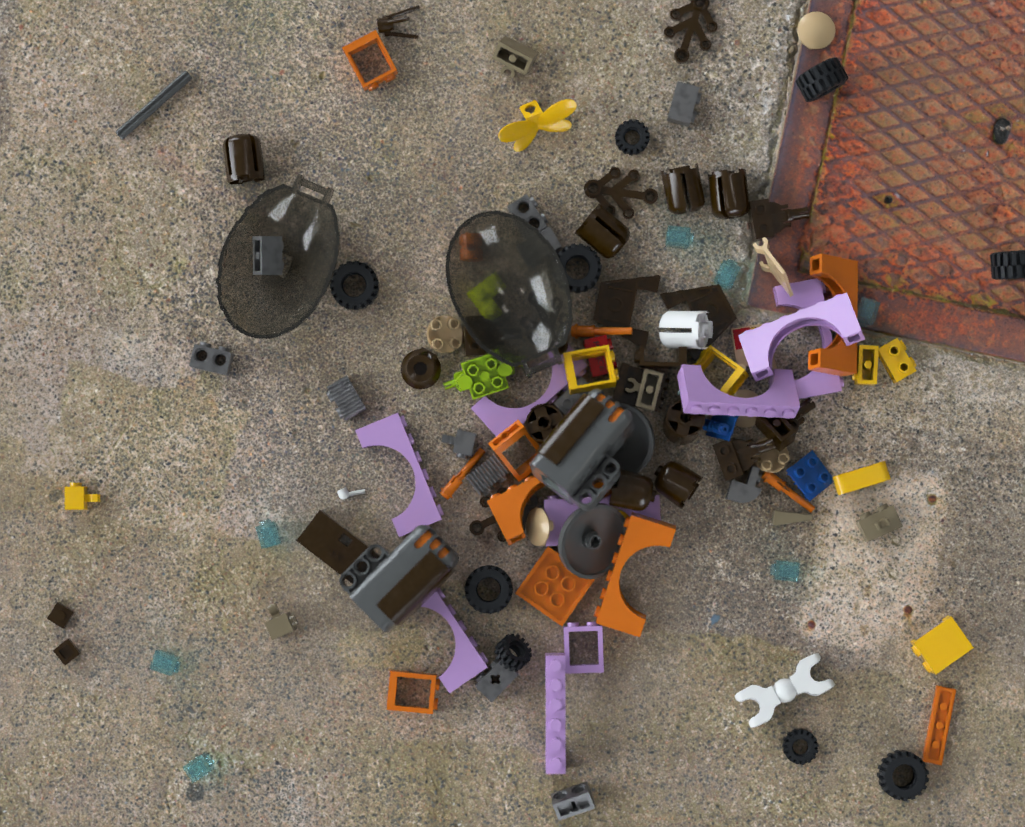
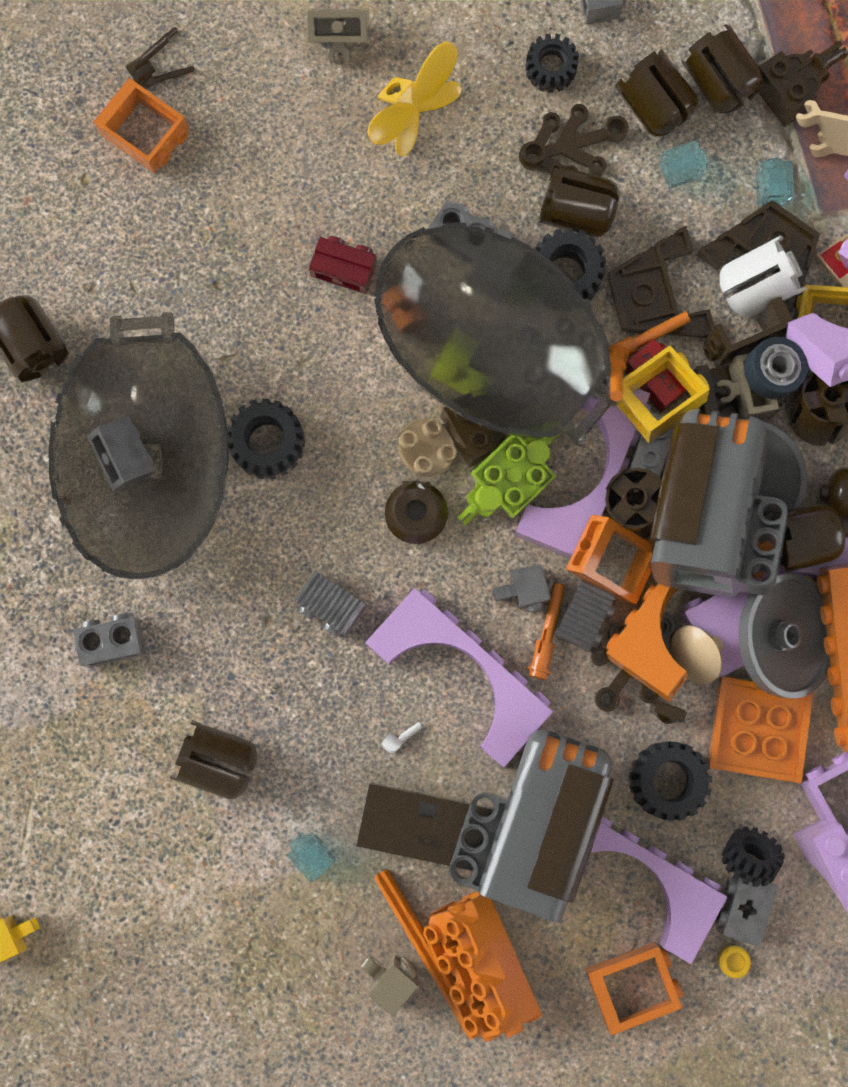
camera: 25 degrees left, 5 degrees down
(246, 449) = (211, 776): none -> dark brown cylinder
(308, 619) = (415, 933): none -> orange axle
(336, 631) = (489, 982): none -> orange brick
(449, 202) = (343, 264): none -> dark red brick
(475, 705) = (734, 961): none -> yellow tile
(507, 552) = (667, 713): none -> dark brown tile
(578, 334) = (618, 358): none -> orange pin
(672, 382) = (787, 357): none -> wheel

